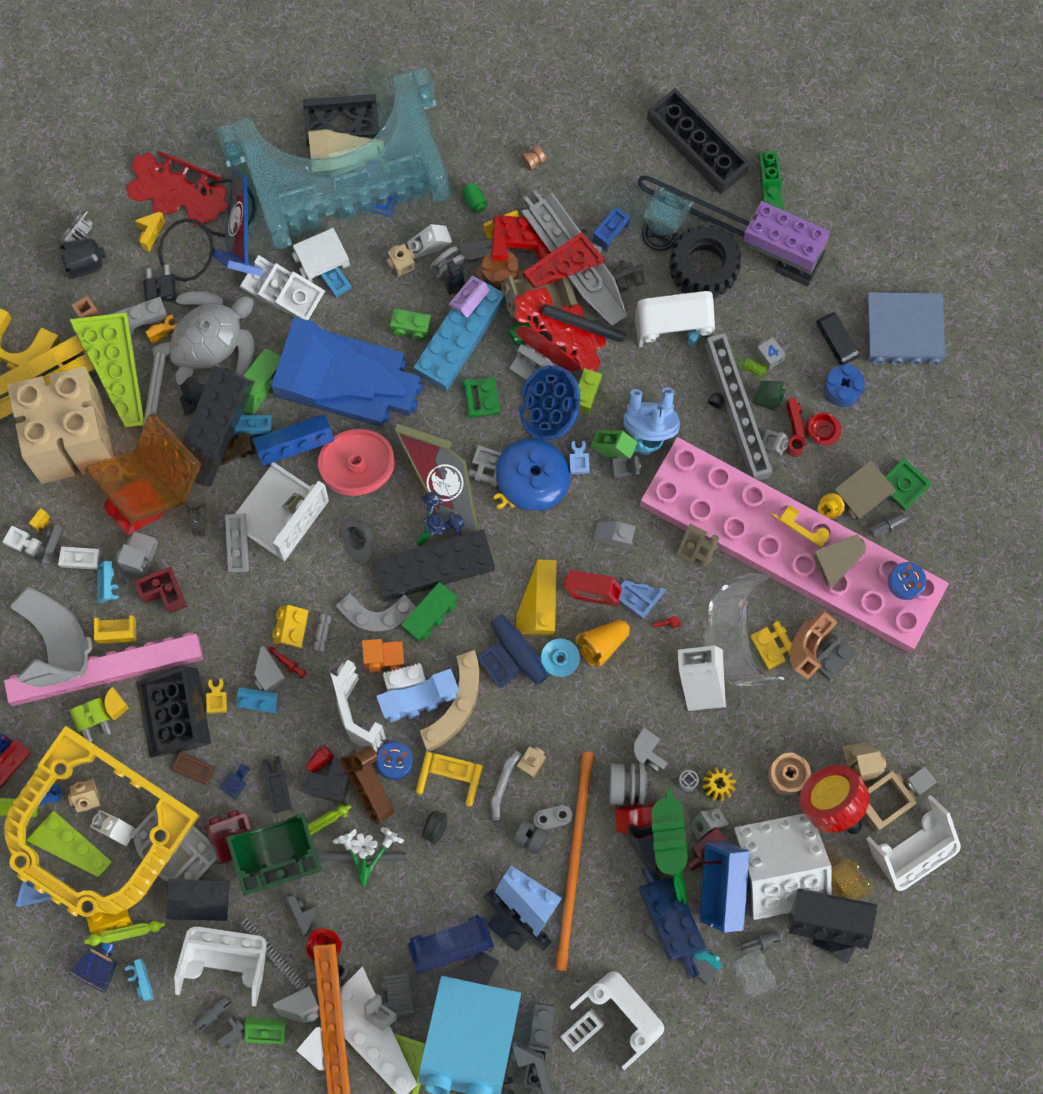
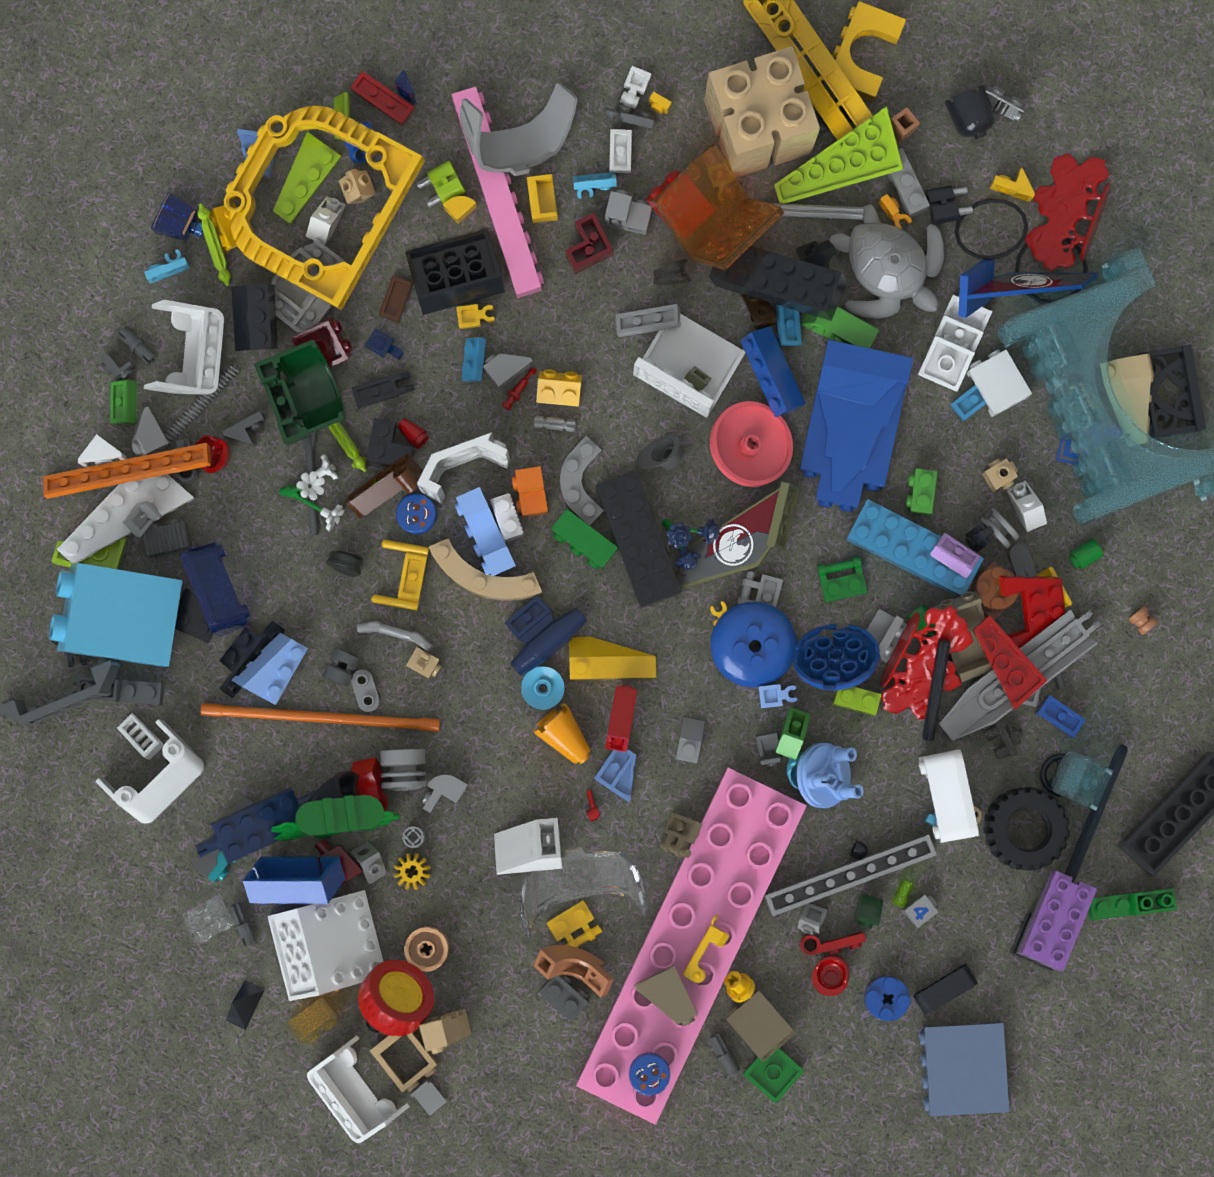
camera: 85 degrees right, 10 degrees up
(832, 918) = (268, 1001): black slope -> none

